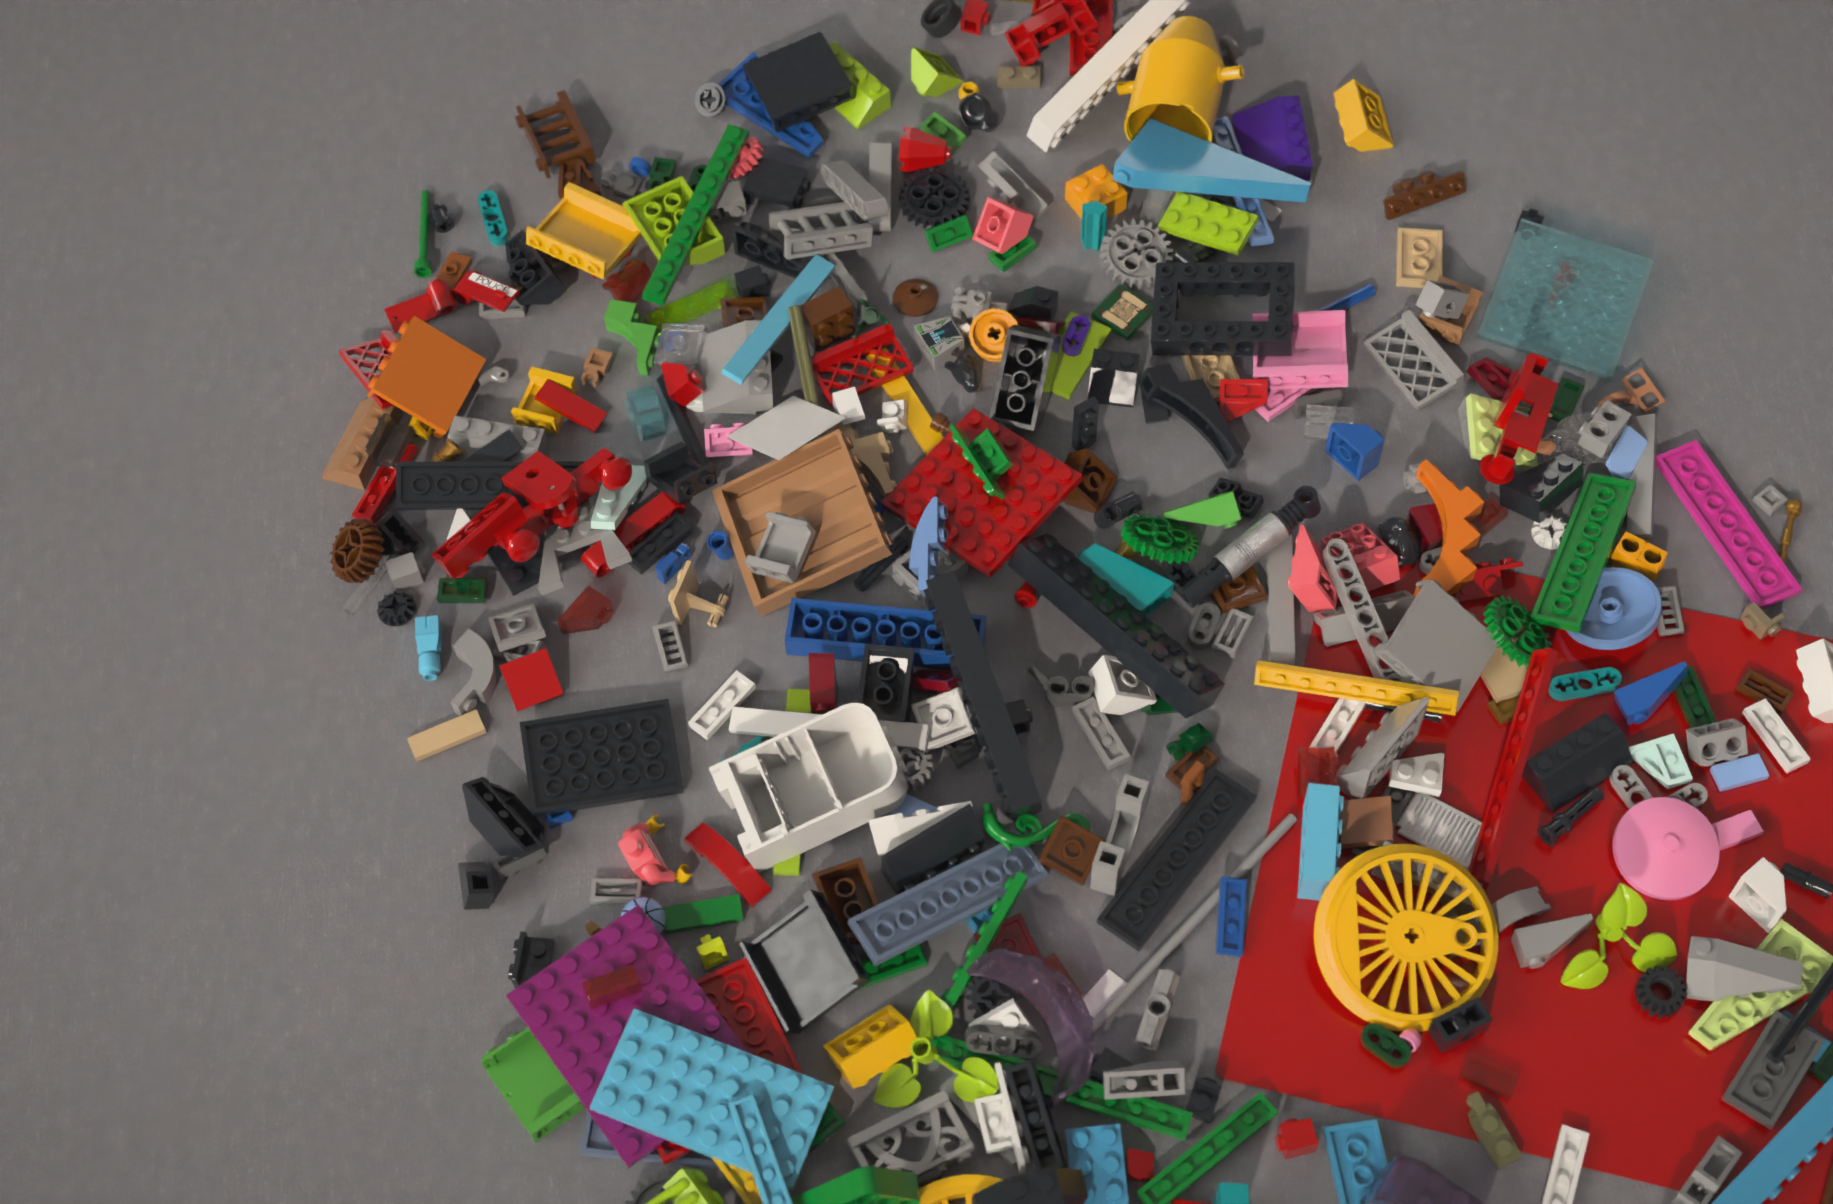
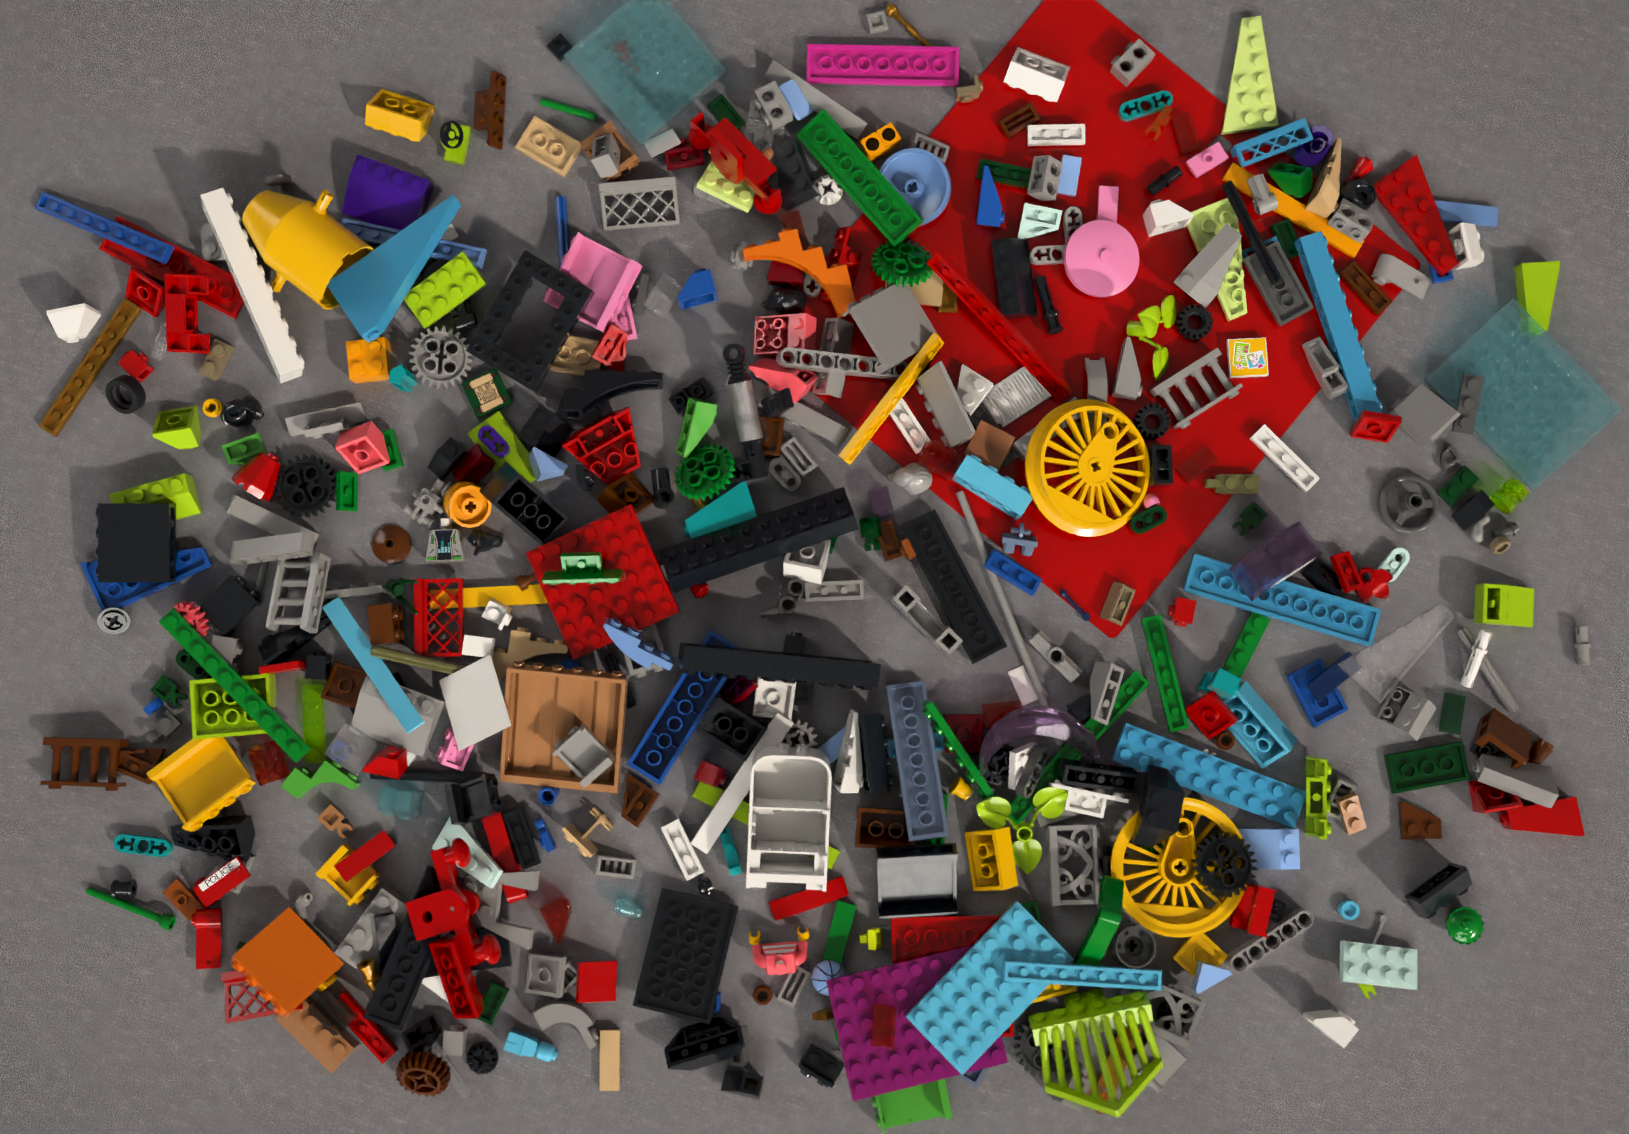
camera: 70 degrees left, 25 degrees up
(587, 856) = (762, 1001): none -> reddish brown plate
(629, 676) = (628, 908): none -> clear light blue cone
(690, 745) = (705, 886): none -> black plate
(735, 249) = (283, 667): none -> red tile
(755, 637) = (637, 800): none -> reddish brown wing
(939, 973) = (961, 789): none -> yellow piece
(1024, 822) = (892, 673): green plant -> none
(1070, 850) = (914, 656): reddish brown tile -> none
(1077, 389) = (545, 466): none -> light blue slope
(1132, 438) = (606, 446): none -> red wedge
(1139, 1165) = (1151, 721): red slope -> none
(1203, 1099) = (1128, 657): black bracket -> none
(1225, 1027) = (1085, 616): none -> dark blue hinge
(1231, 735) = (880, 501): none -> clear purple brick
(1262, 1059) = (1117, 603): none -> dark tan slope
(1275, 917) = (1027, 542): none -> sand blue hips
(1277, 569) = (777, 403): none -> black slope
(1278, 758) = (912, 478): none -> light grey hair
(1367, 174) = (455, 141): none -> lime piece
(1464, 1172) = (1251, 517): none -> dark green plate
(1470, 259) = (568, 109): none -> green bar
(1493, 354) = (662, 142): none -> white sticker
(1504, 1010) = (1160, 413): none -> black tyre
(1593, 676) = (954, 223): teal beam -> none
(1601, 1014) = (1195, 371): none -> light grey fence
(1633, 396) = (747, 65): nougat piece -> none
(1658, 1077) = (1247, 357): none -> tile

